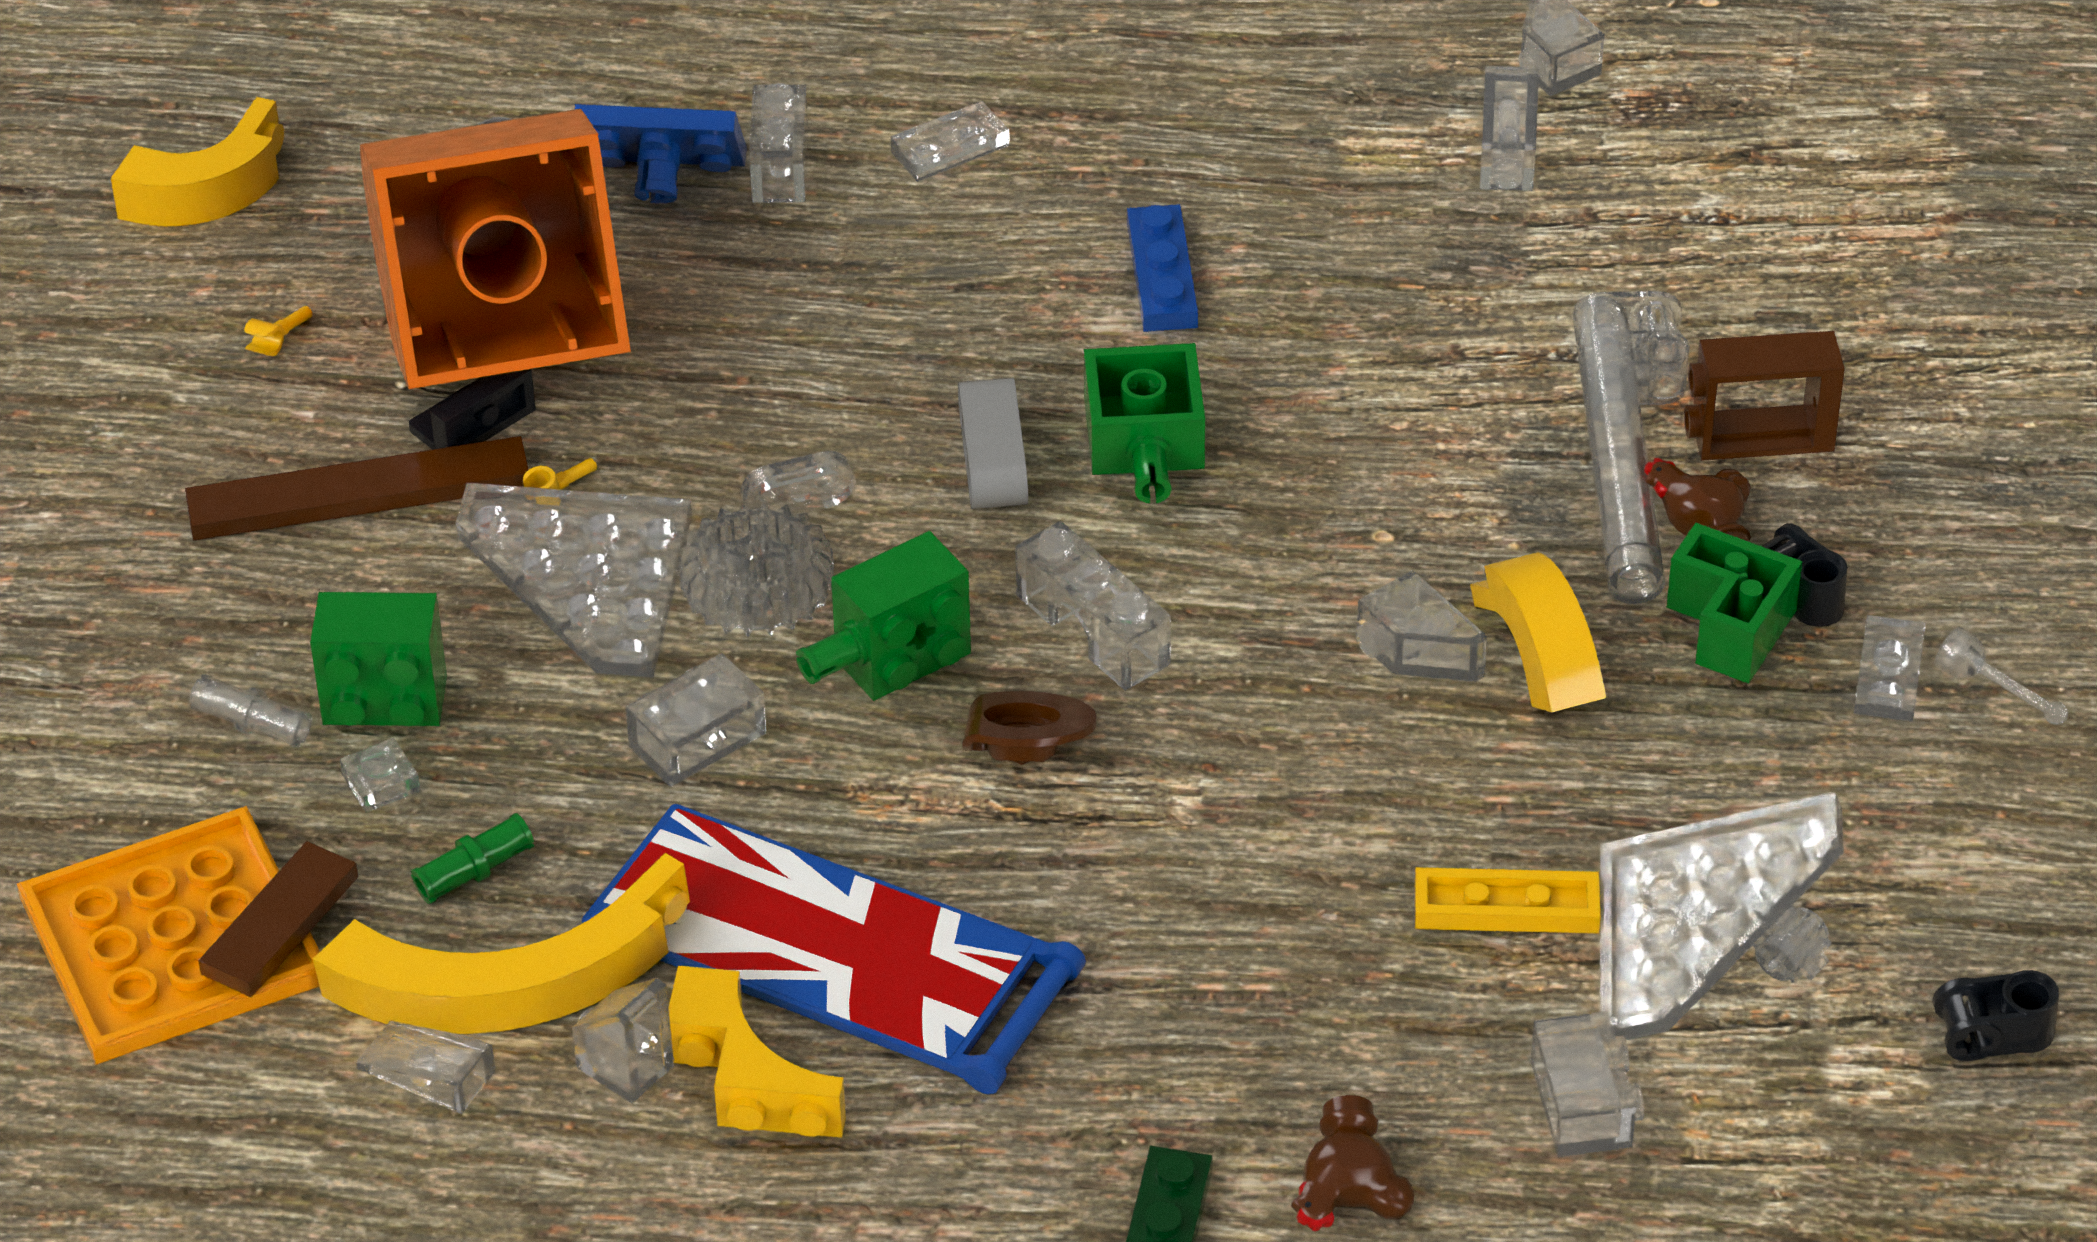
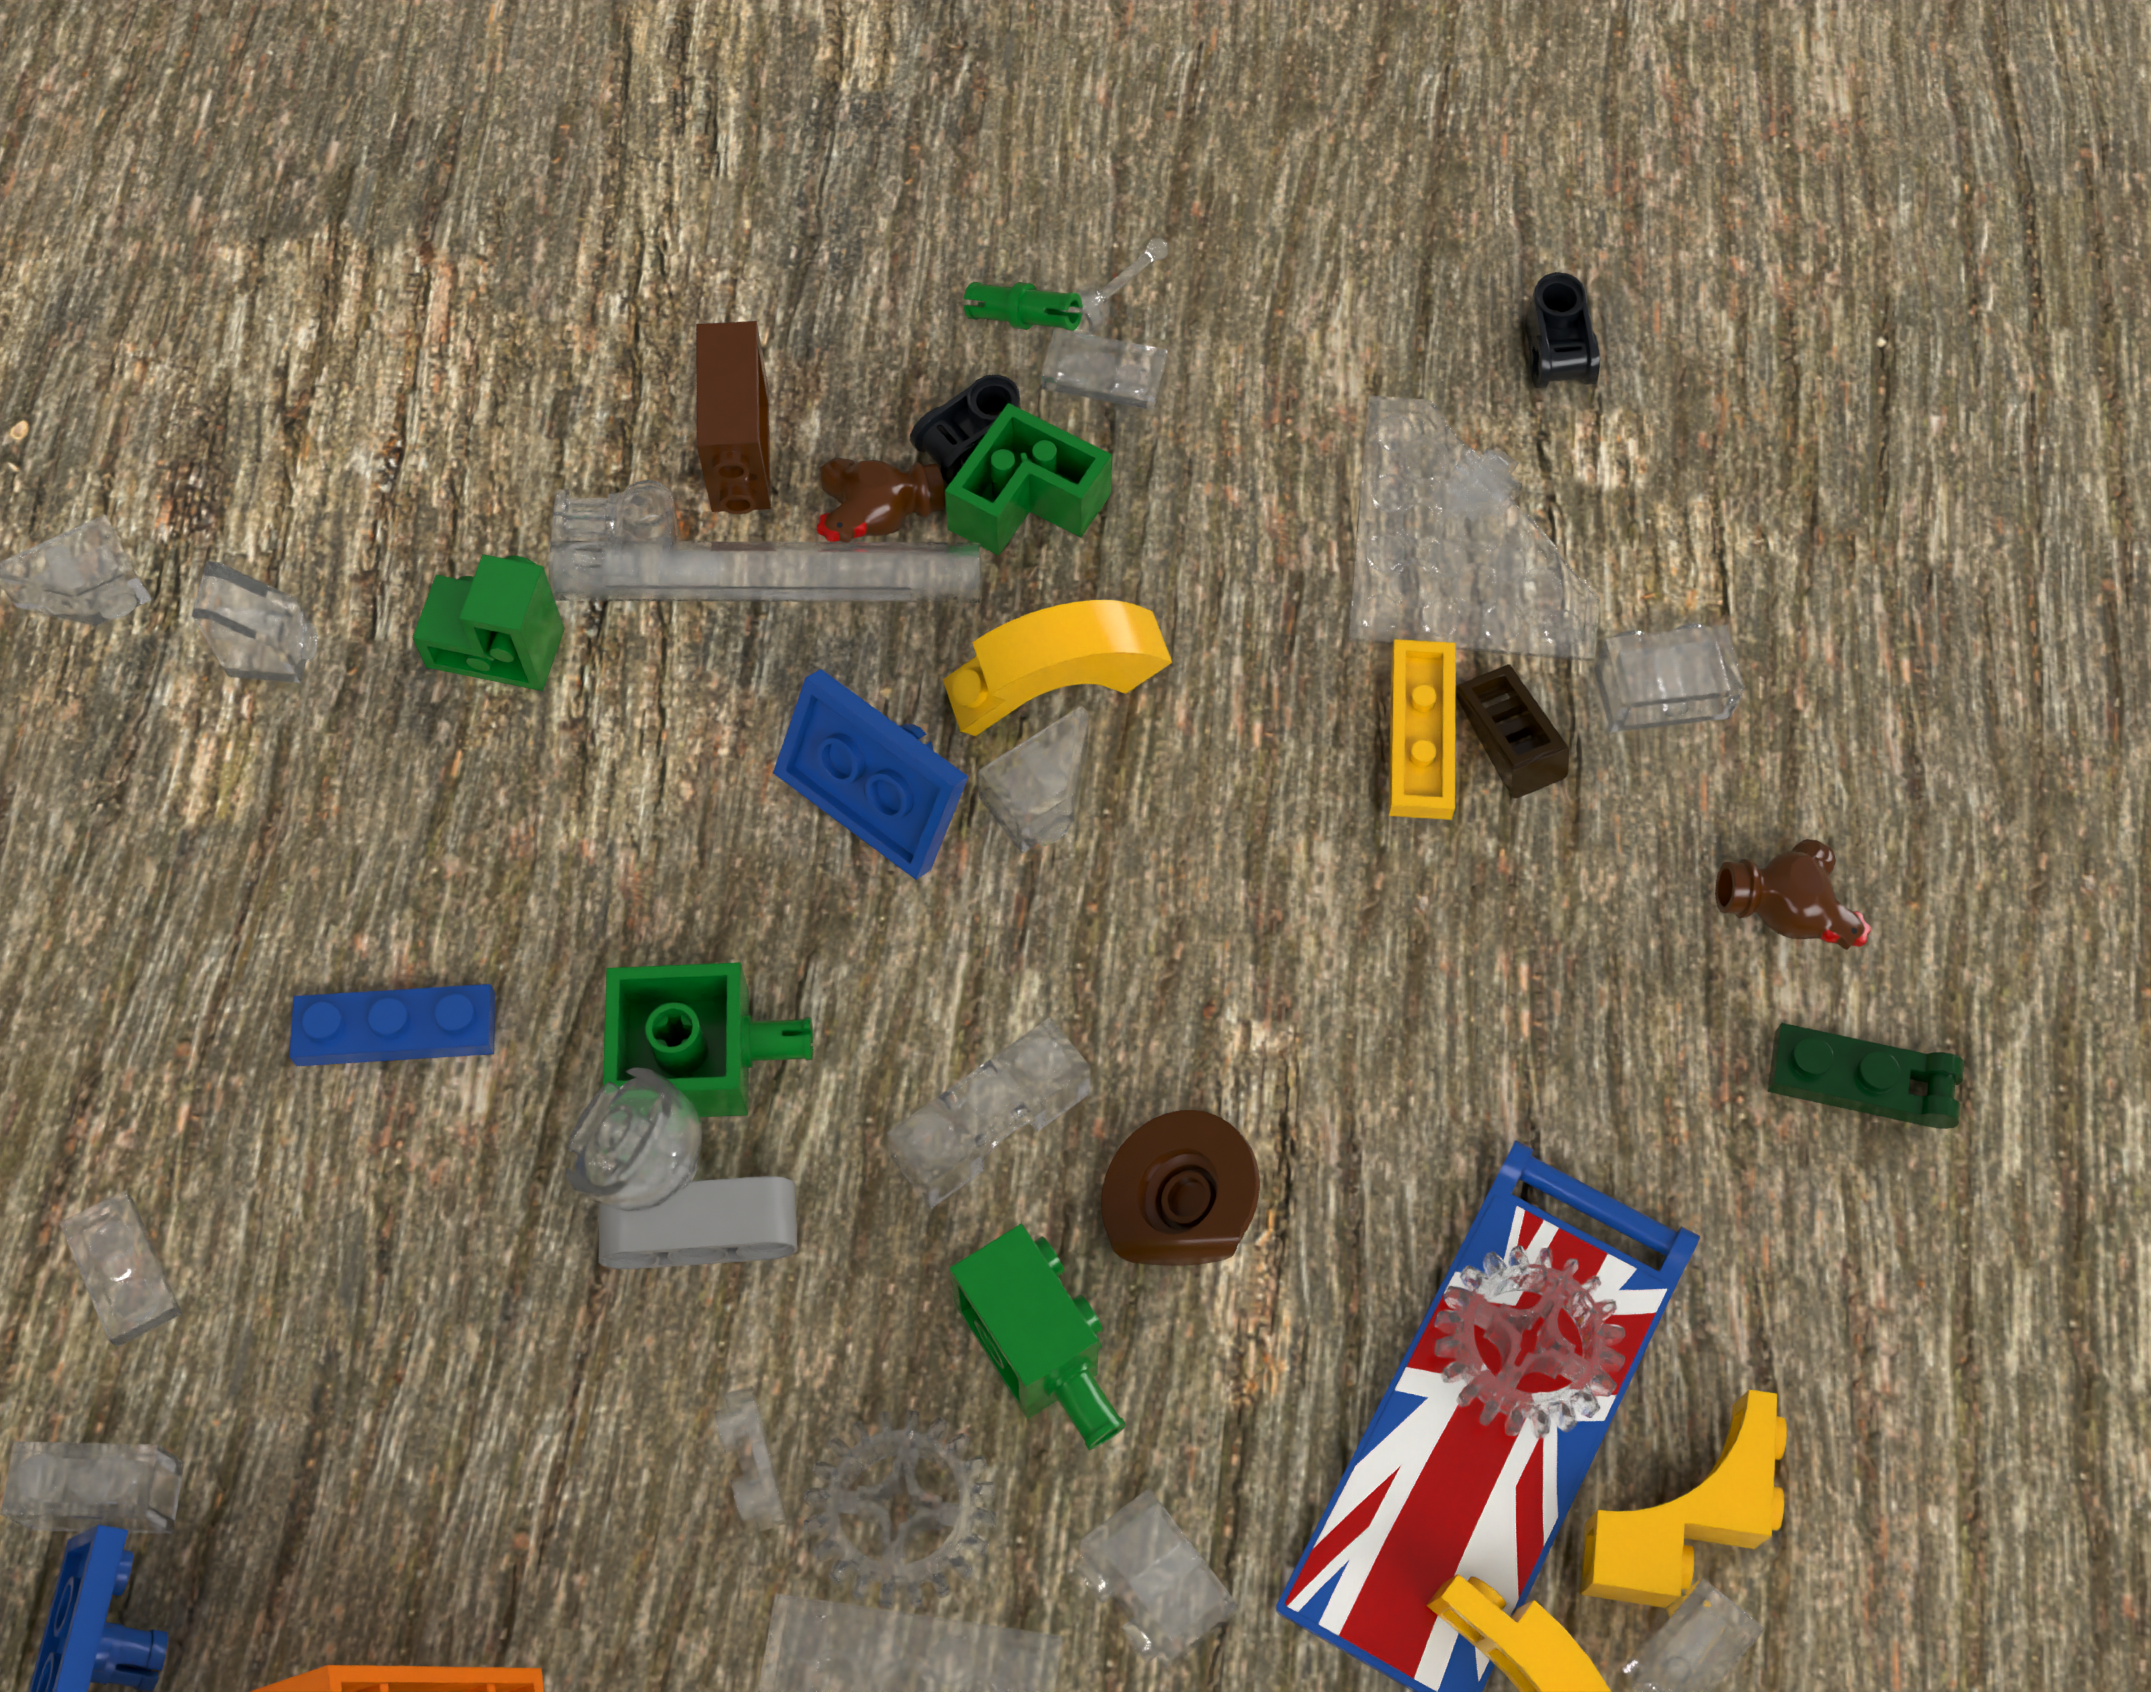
camera: 90 degrees left, 20 degrees up
(893, 952) = (1552, 1353): none -> clear gear
(1033, 365) = (636, 1143): none -> clear cylinder
(1412, 513) = (870, 773): none -> blue plate
(1486, 994) = (1527, 764): none -> dark brown slope
(1530, 275) = (492, 624): none -> green brick
(1947, 598) = (1023, 306): none -> green pin

